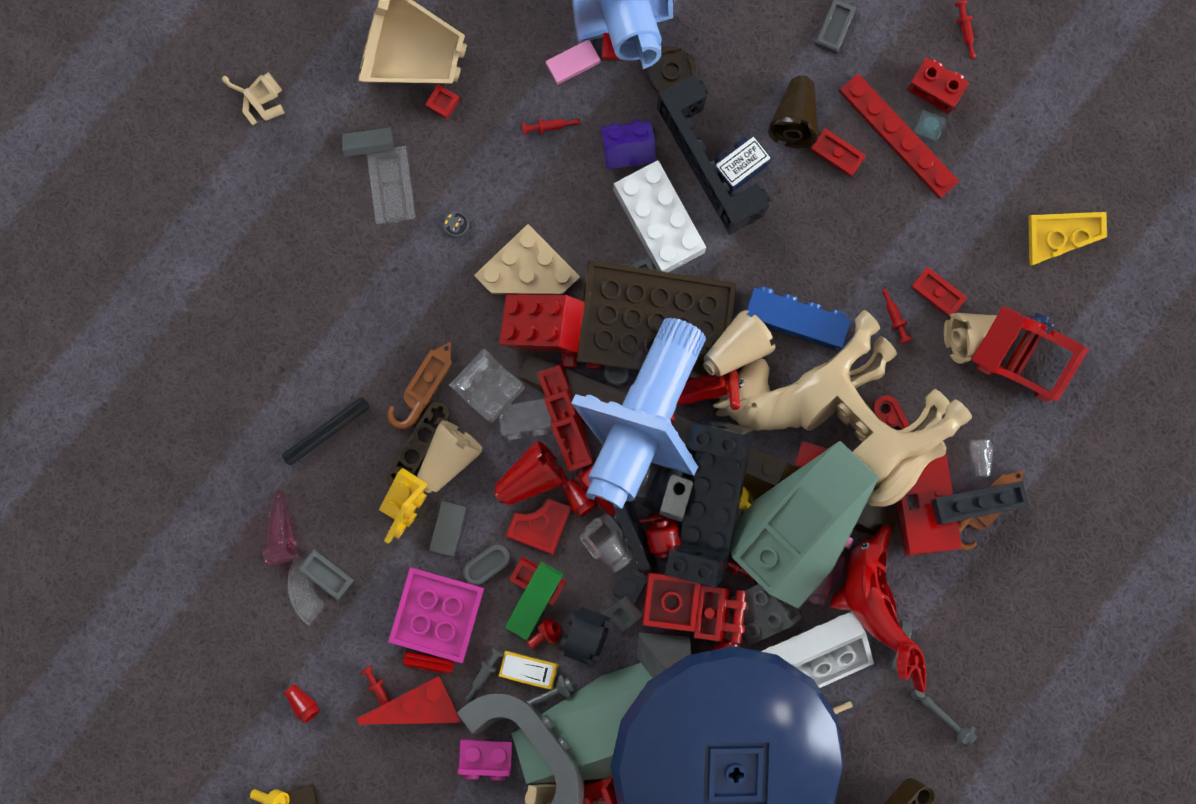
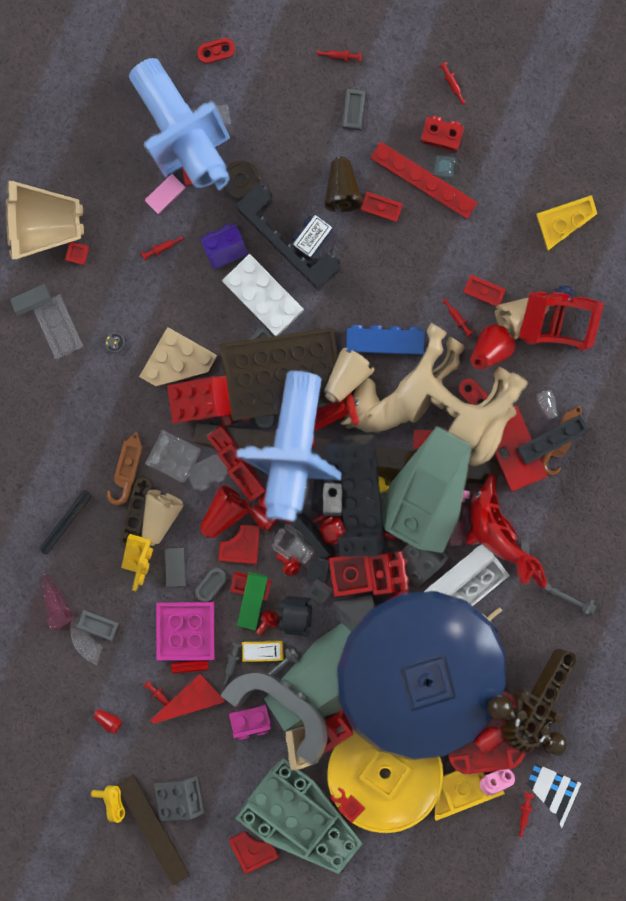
camera: 15 degrees left, 5 degrees up
(597, 570) = (291, 566): none -> red plate
(934, 362) = (492, 347): none -> red cone

